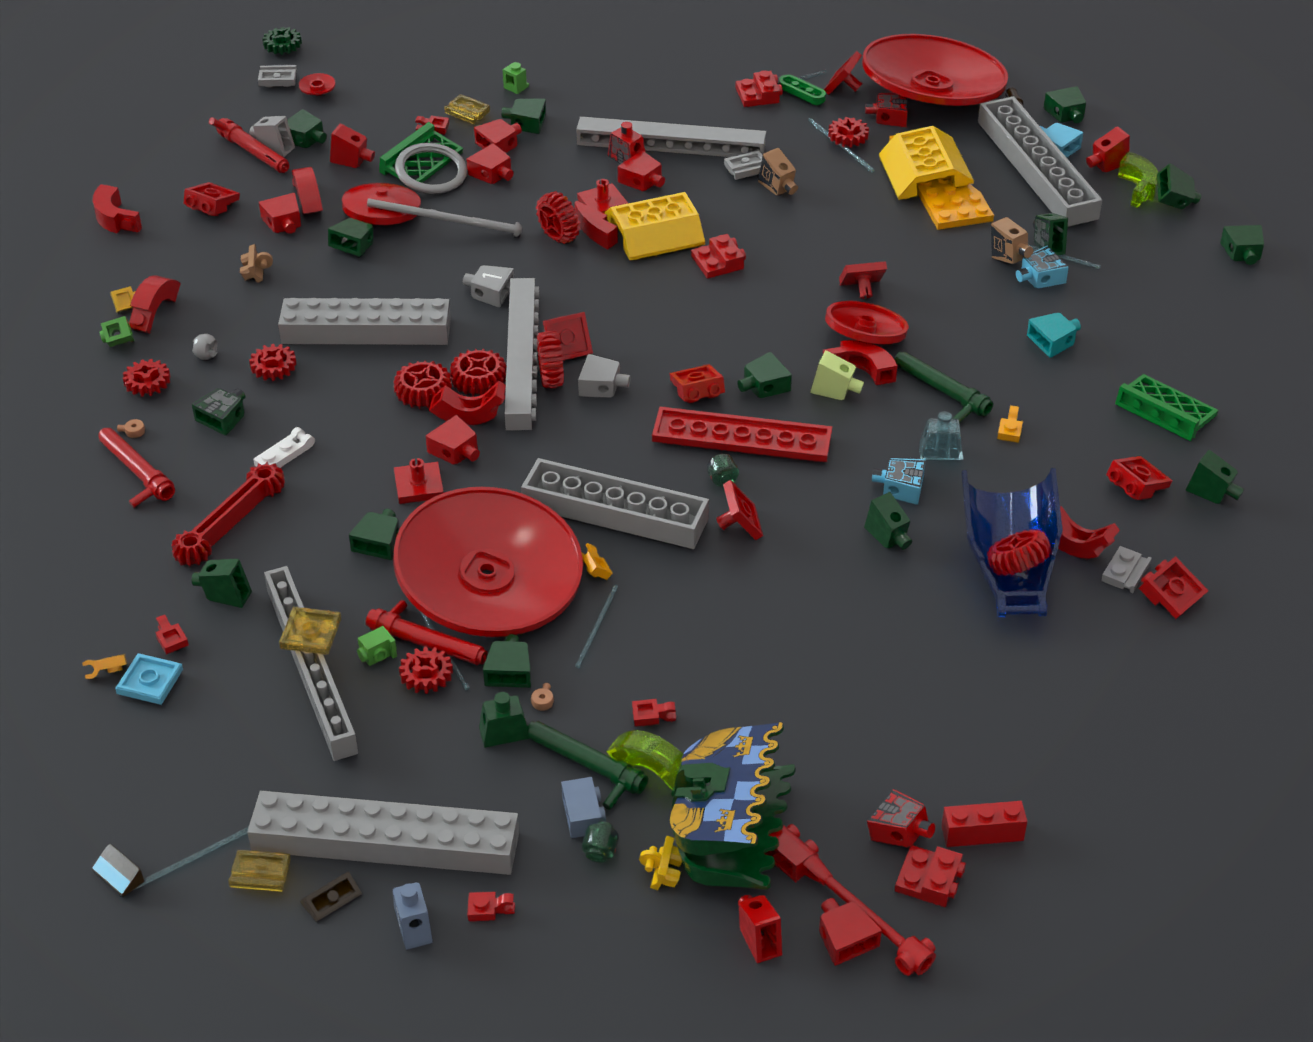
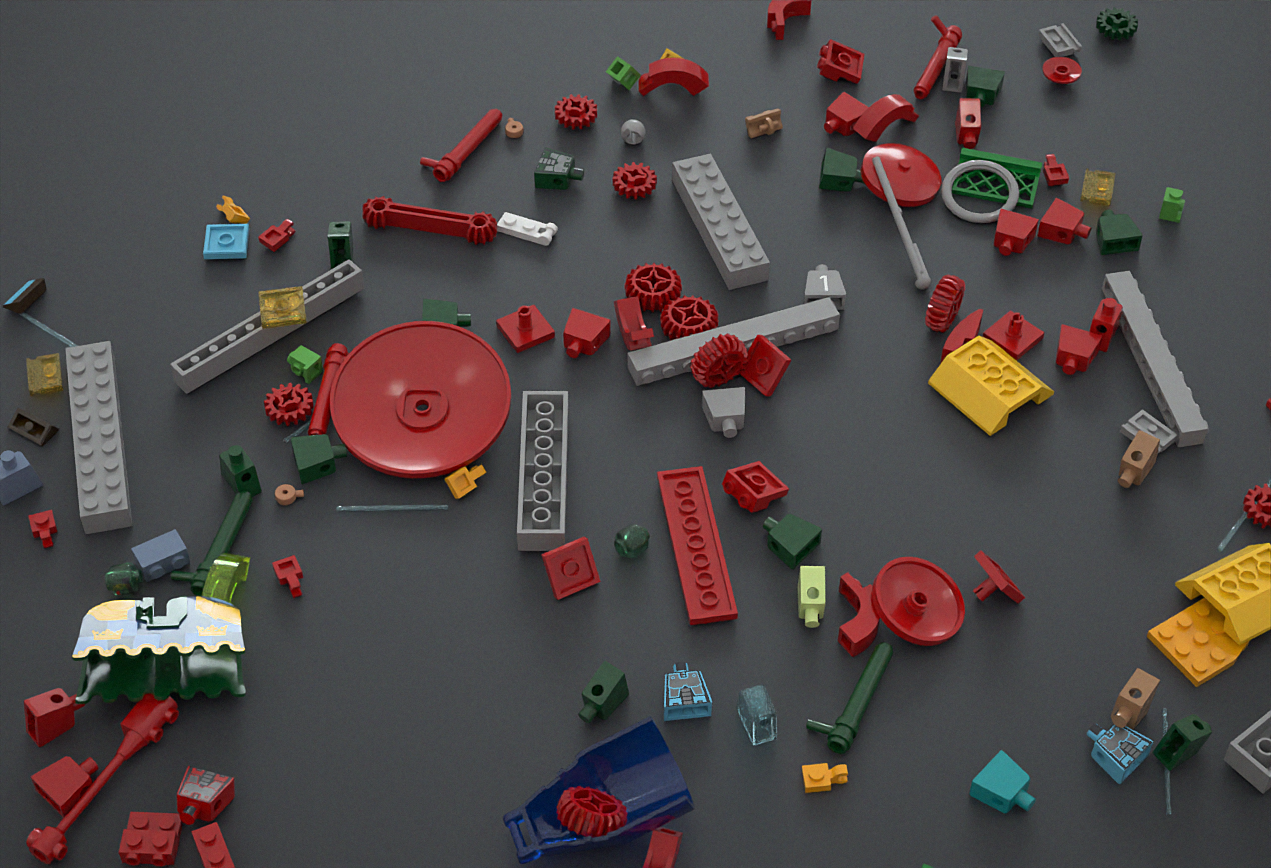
camera: 70 degrees right, 5 degrees up
(719, 256) = (973, 452): red plate -> none

